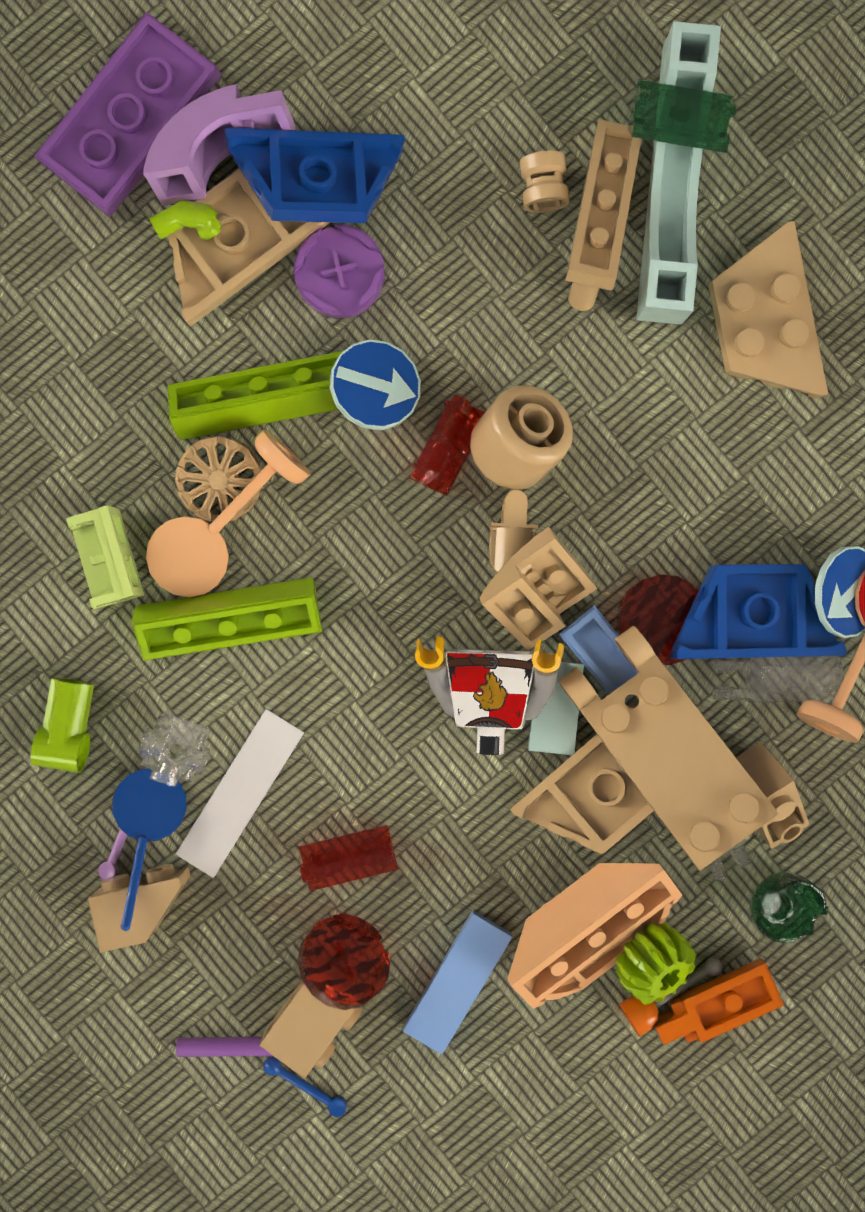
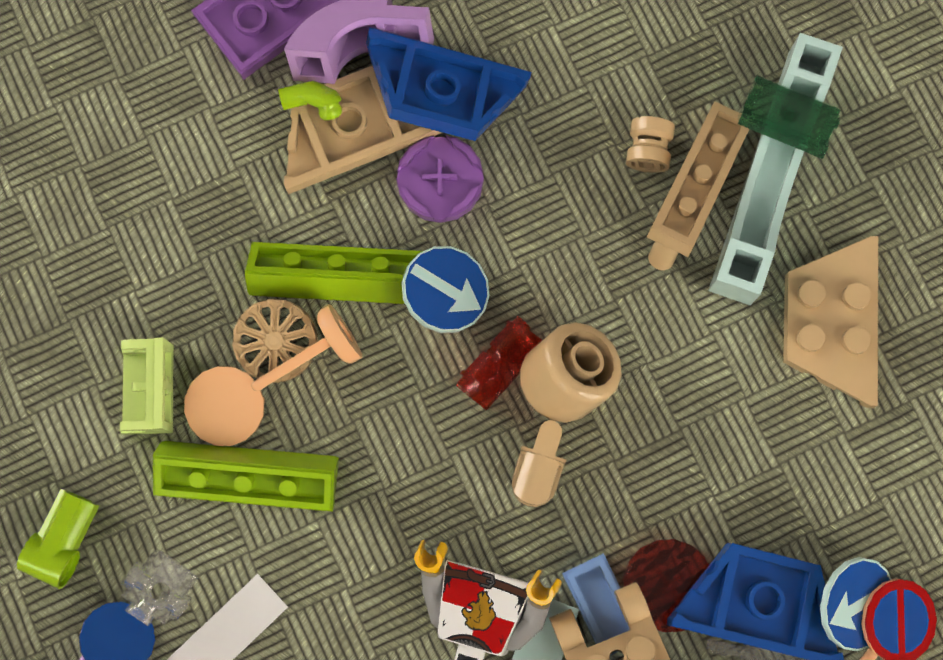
camera: 20 degrees right, 10 degrees down
(536, 588) = (550, 522): tan slope -> none

